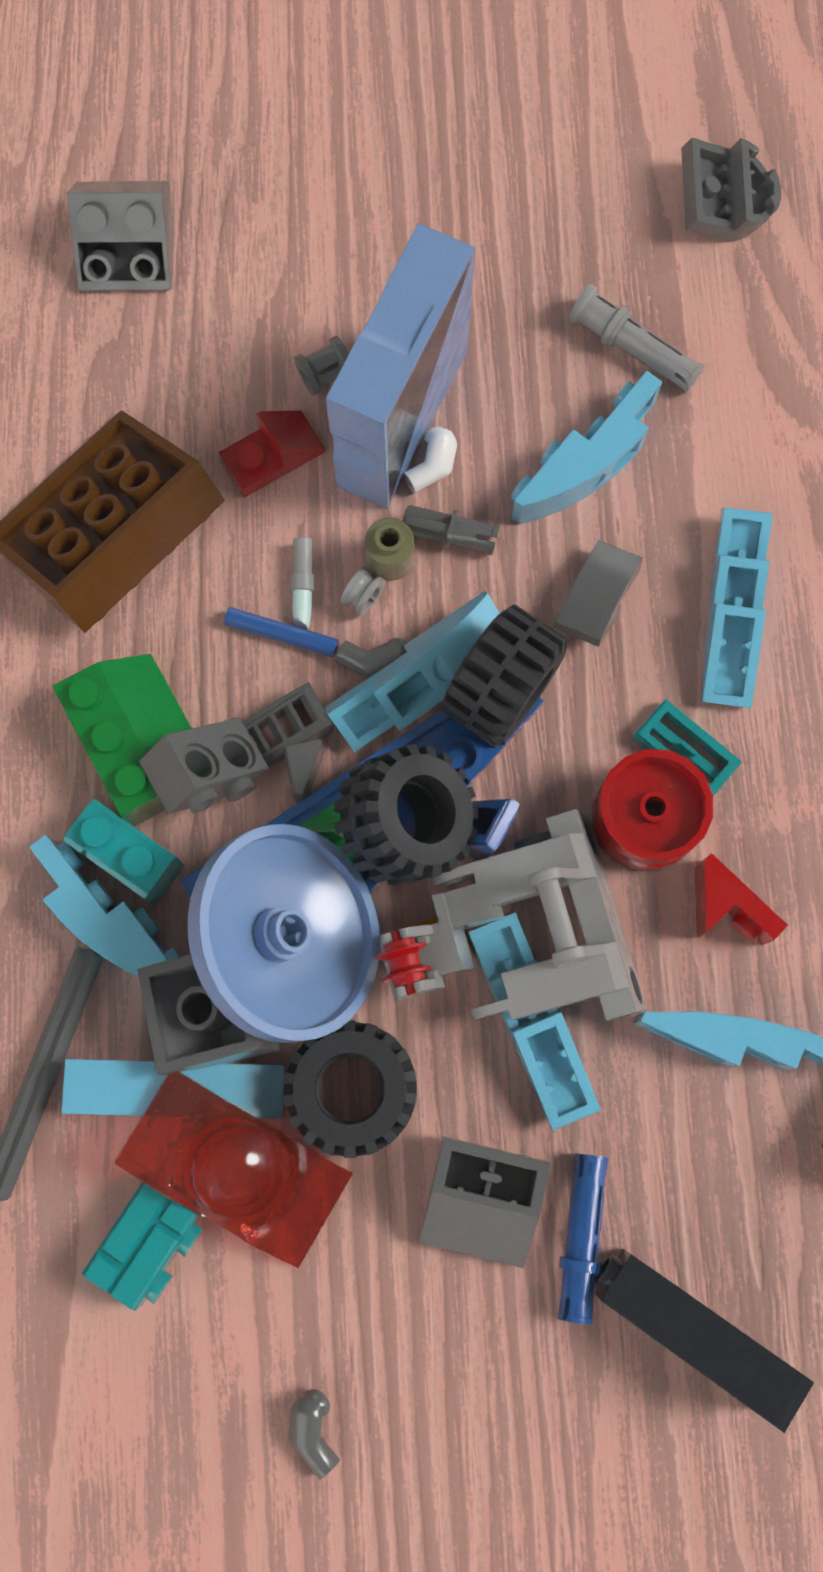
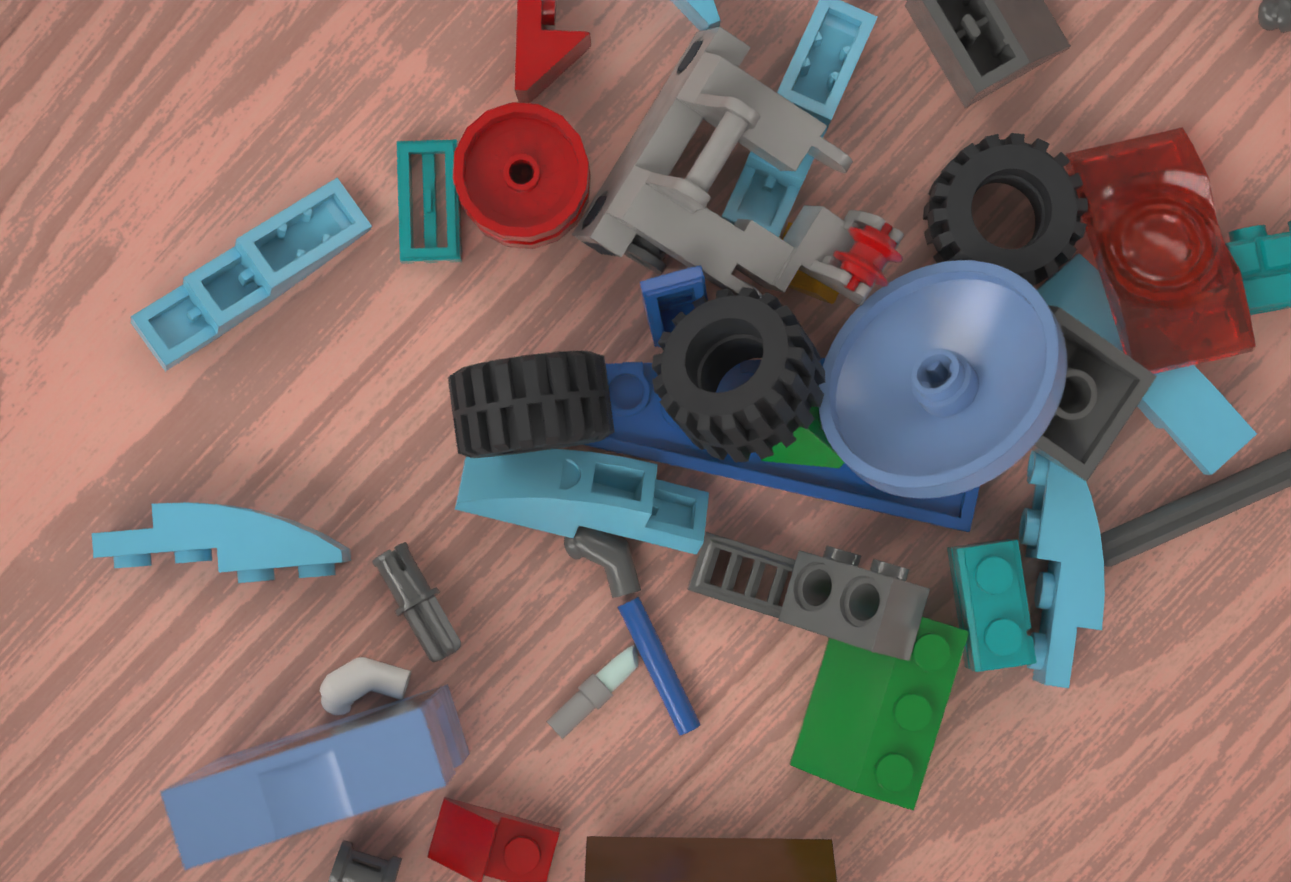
camera: 135 degrees left, 10 degrees up
(302, 766) = (770, 522): dark grey slope -> none
(363, 591) = (553, 625): light grey bush -> none
(389, 549) = (510, 624): olive brick -> none
(598, 593) = (355, 409): dark grey slope -> none
(618, 328) = (64, 634): light grey pin -> none

